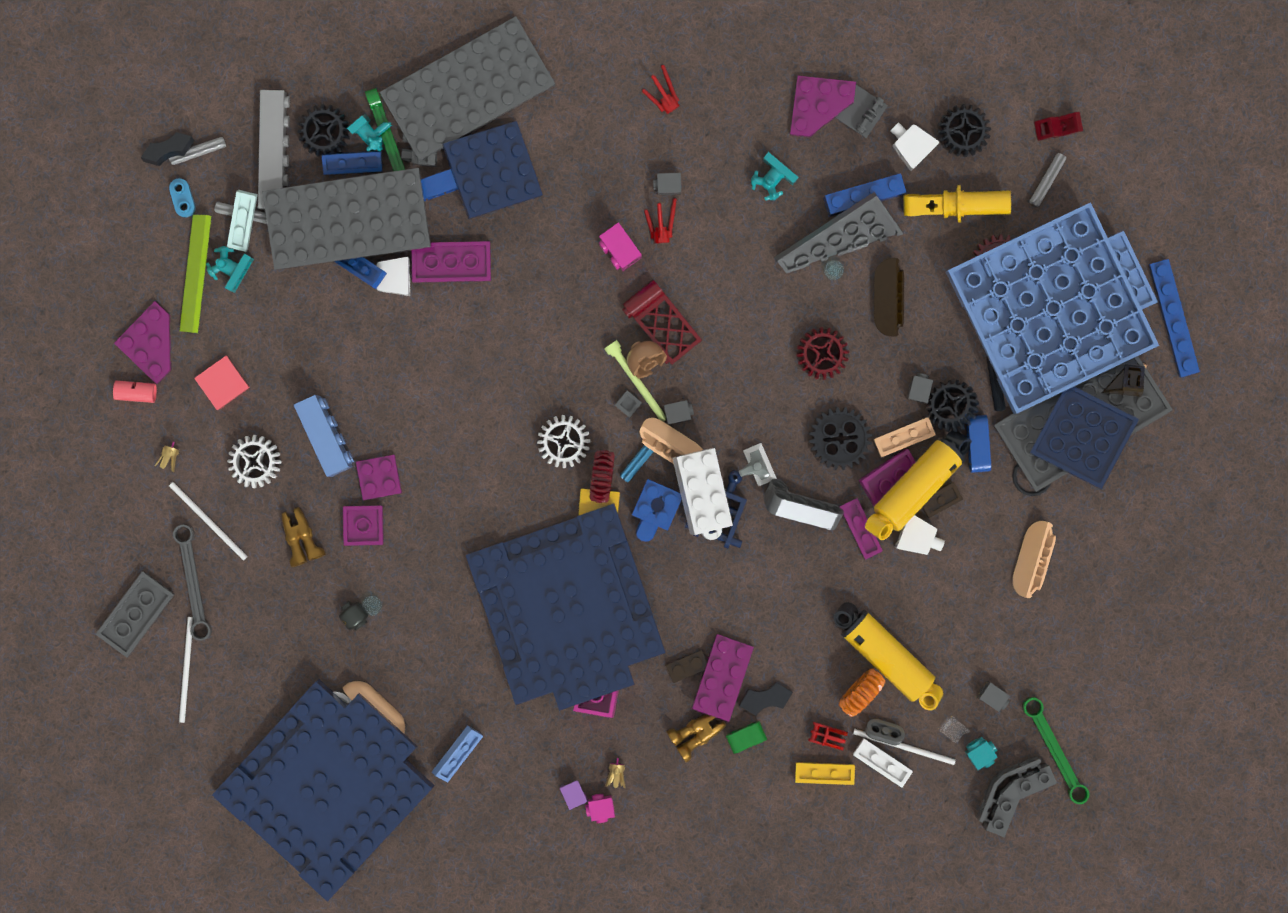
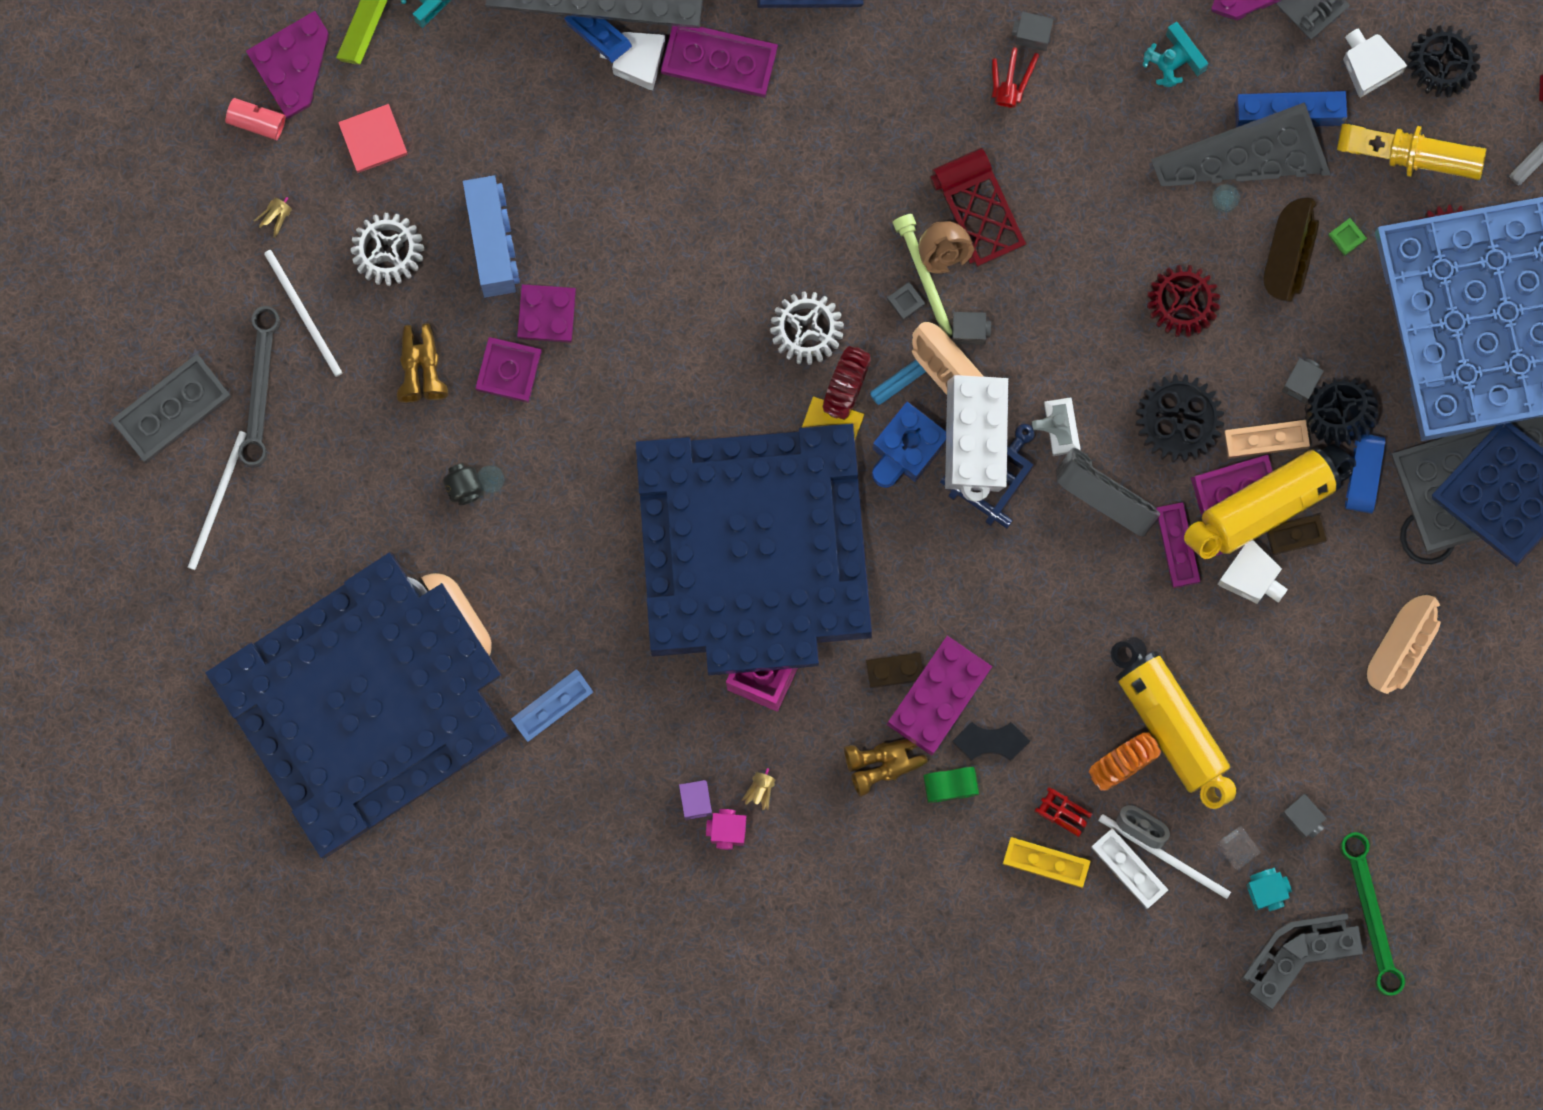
camera: 15 degrees right, 10 degrees down
(620, 247) = (948, 93): dark pink brick -> none
(926, 275) = (1347, 237): none -> bright green tile
(997, 393) = (1407, 411): black axle -> none

